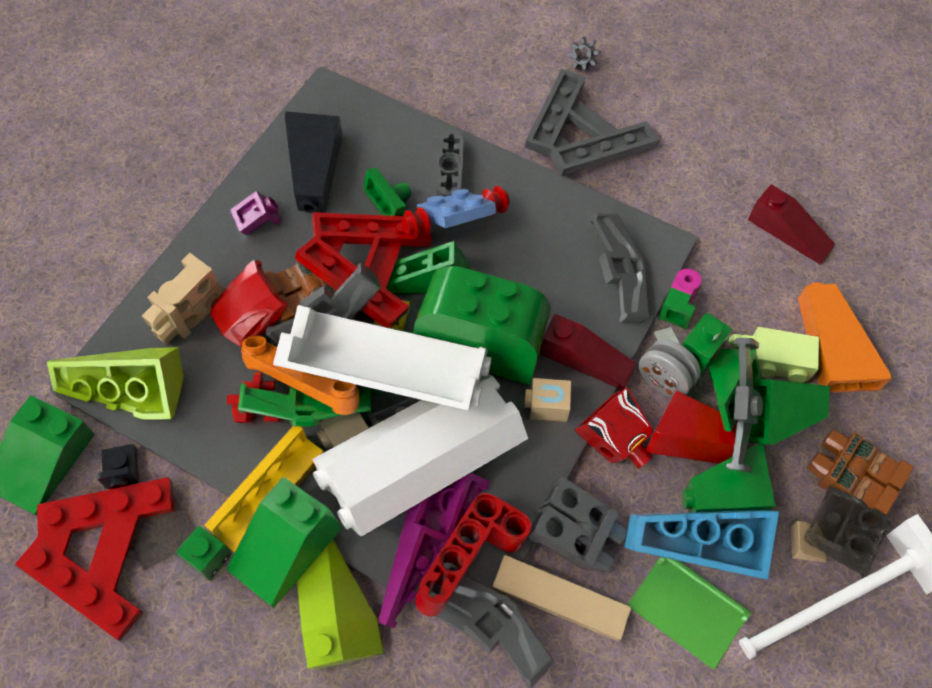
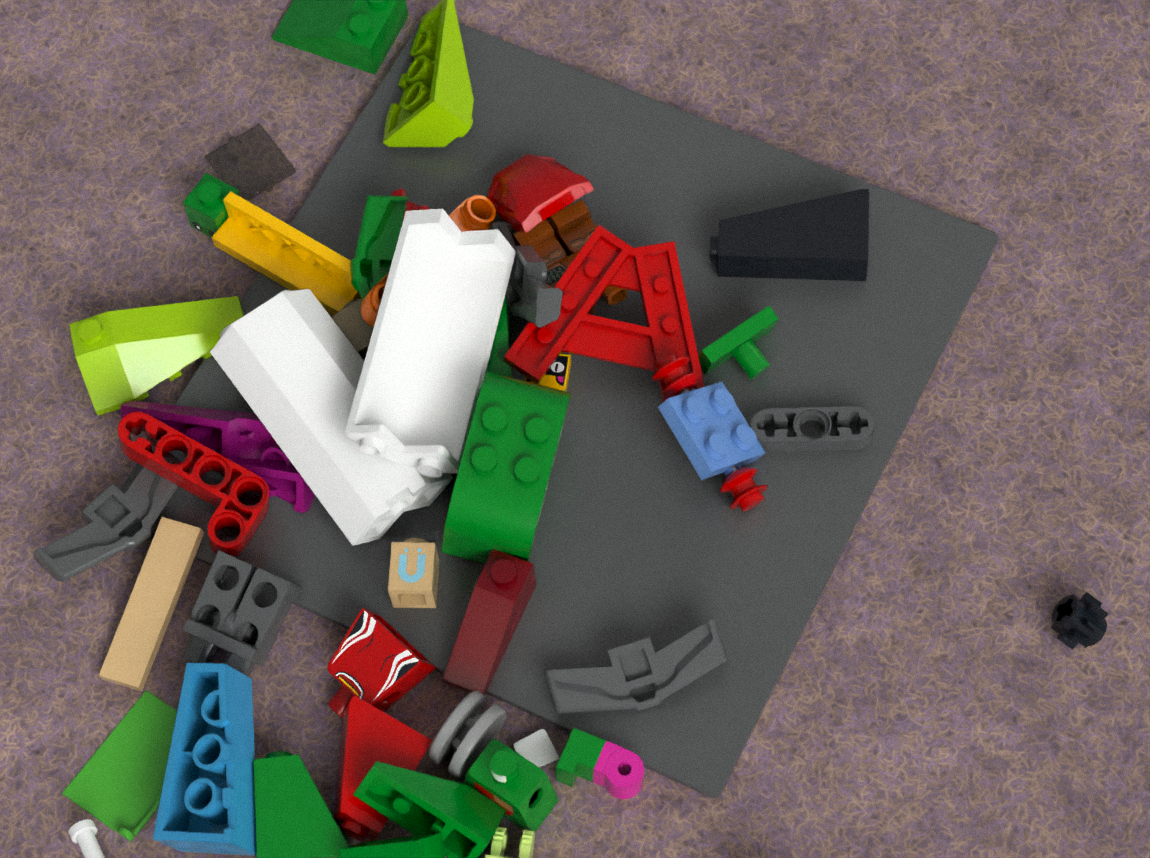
camera: 95 degrees right, 0 degrees up
(94, 590) = (186, 108): red plate -> none
(119, 467) = (327, 106): black bracket -> none
(182, 301) = (539, 120): tan hips -> none
(254, 212) = (700, 187): magenta bracket -> none
(282, 541) = (219, 278): green slope -> none
(416, 271) = (610, 412): green slope -> none
(605, 142) = (897, 669): dark grey plate -> none
(747, 404) = (381, 806): dark grey plate -> none

